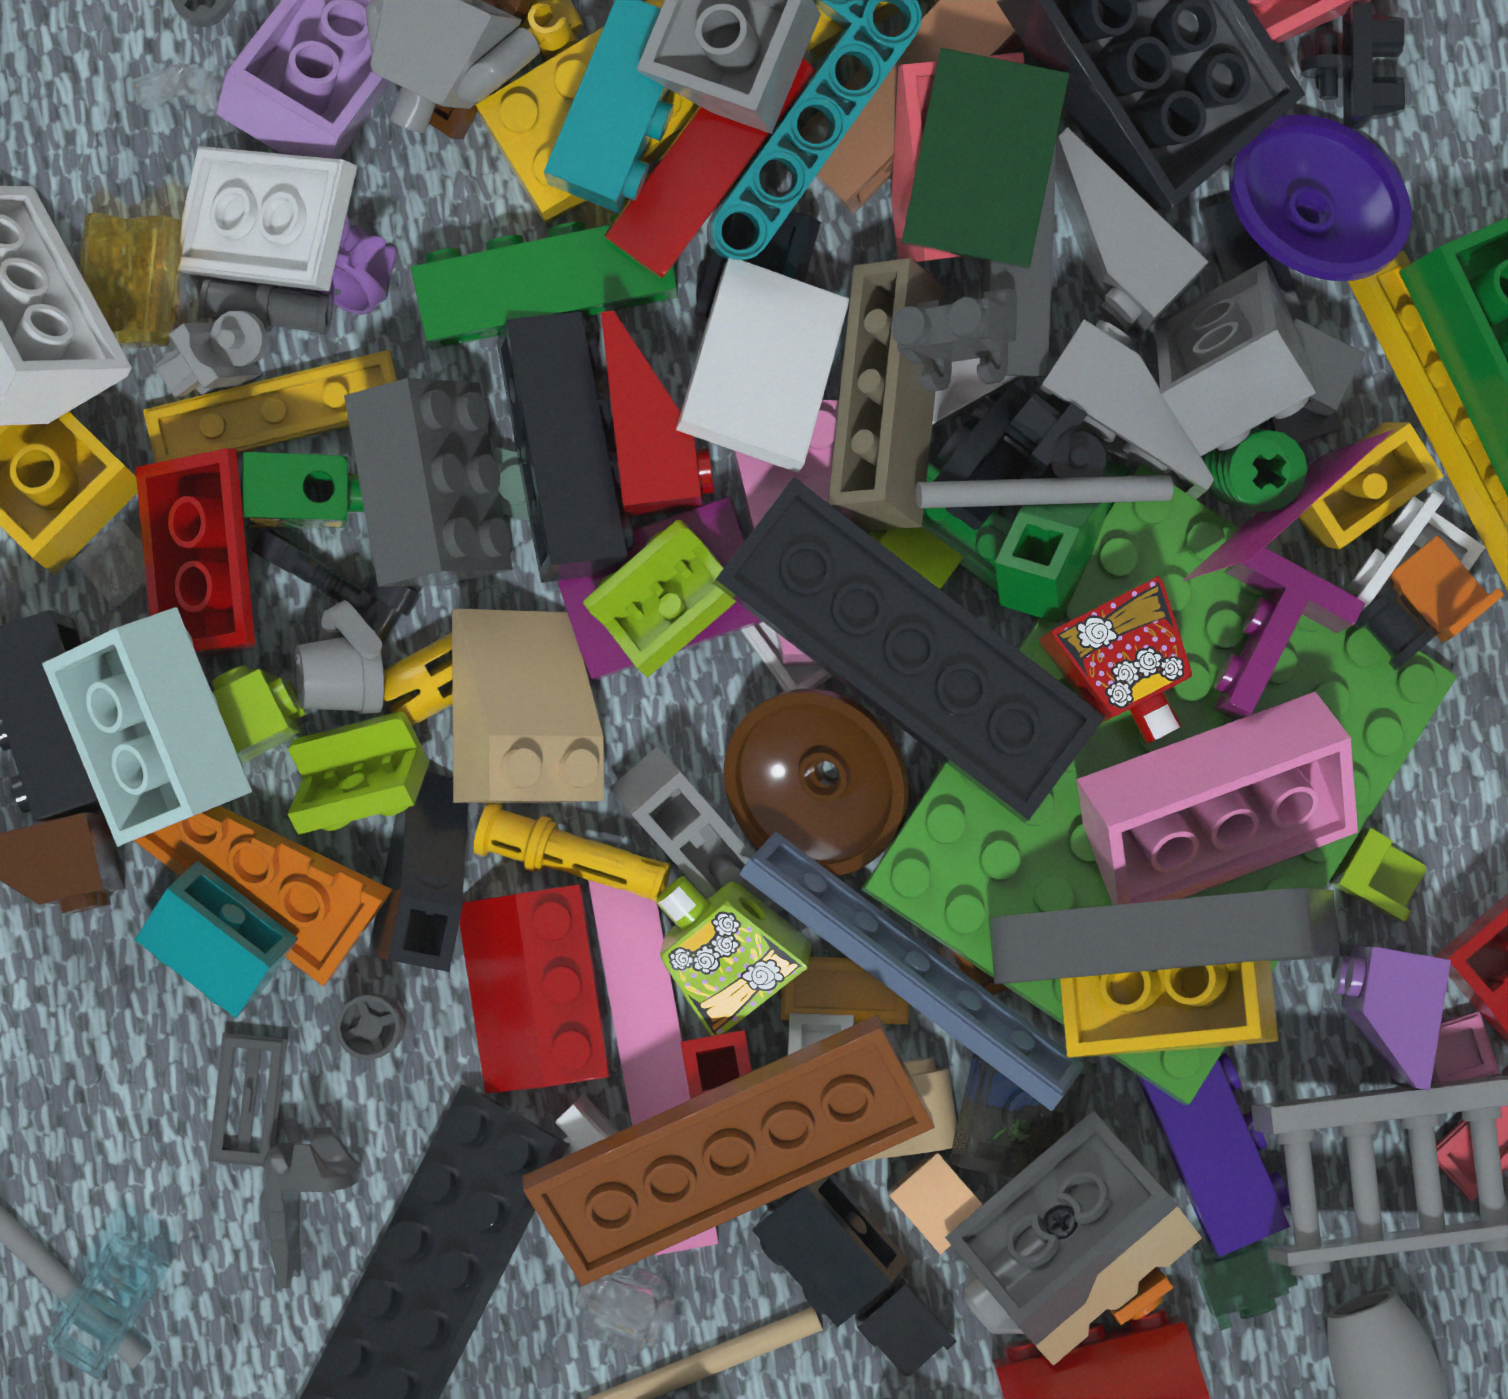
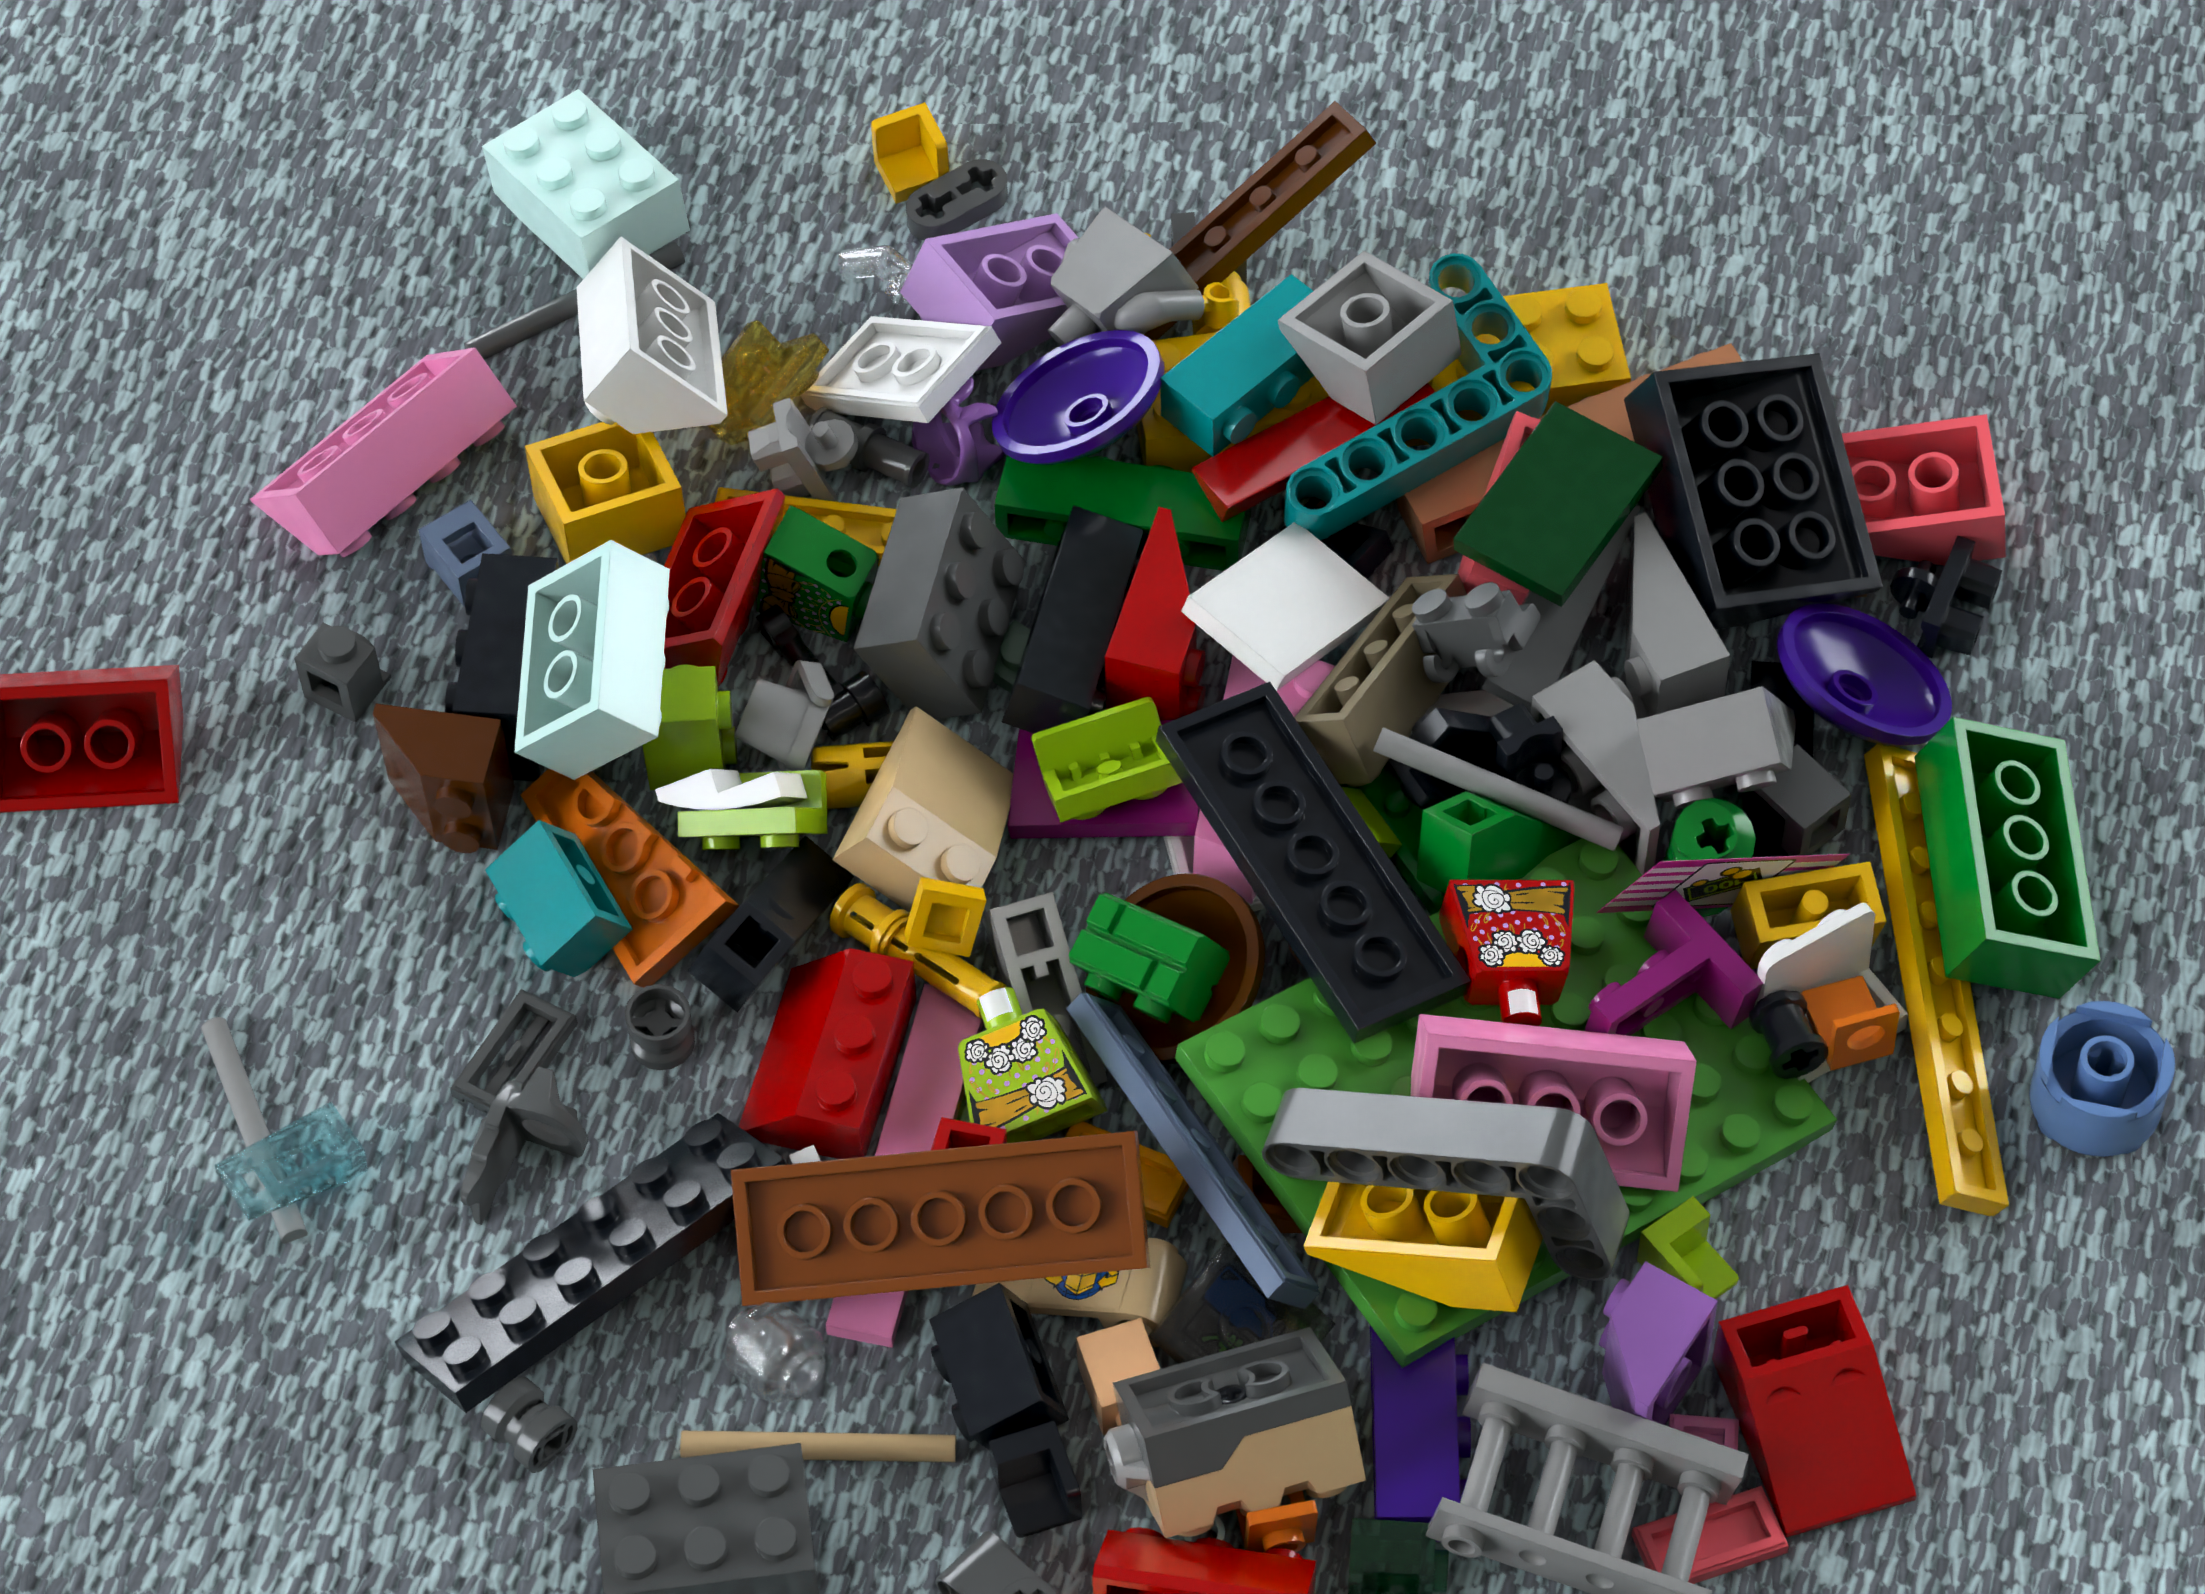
camera: 25 degrees right, 30 degrees down
(319, 777) = (724, 790): none -> white slope
(439, 197) = (1079, 398): none -> dark purple dish
(589, 829) = (945, 917): none -> yellow plate
(794, 798) = (1149, 958): none -> green brick

